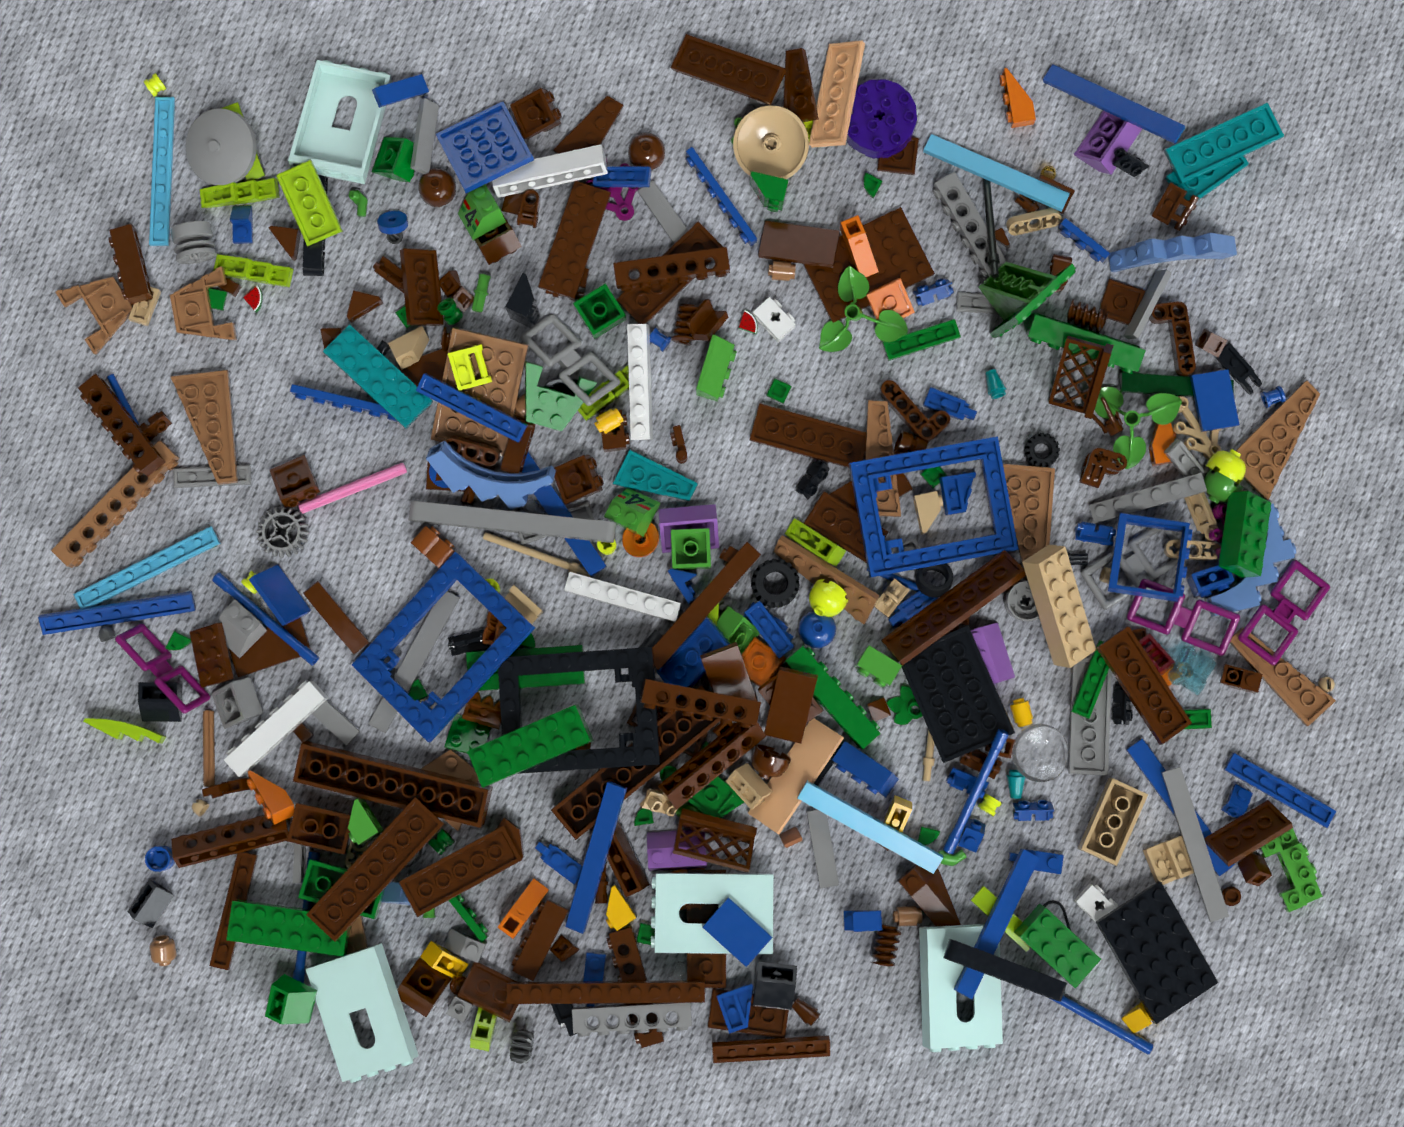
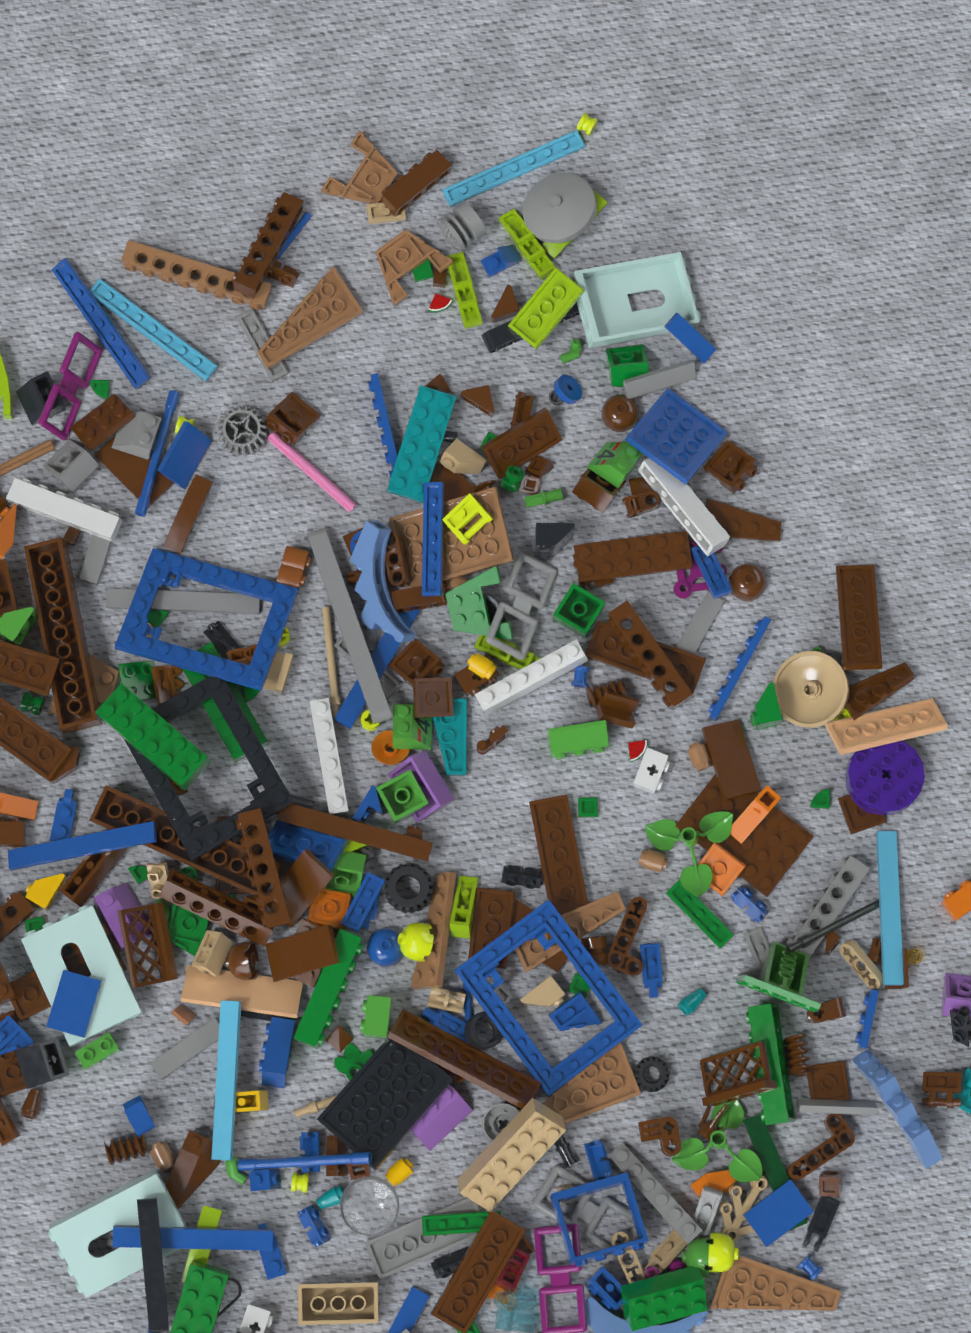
camera: 60 degrees right, 5 degrees down
(106, 633) = (78, 323): dark grey hinge -> none
(601, 895) = (52, 868): reddish brown pin -> none
(615, 478) = (432, 697): none -> reddish brown plate
(787, 930) = (97, 1051): none -> bright green brick
(854, 356) = (653, 860): none -> medium nougat brick
(927, 835) = (244, 1139): green tile -> none

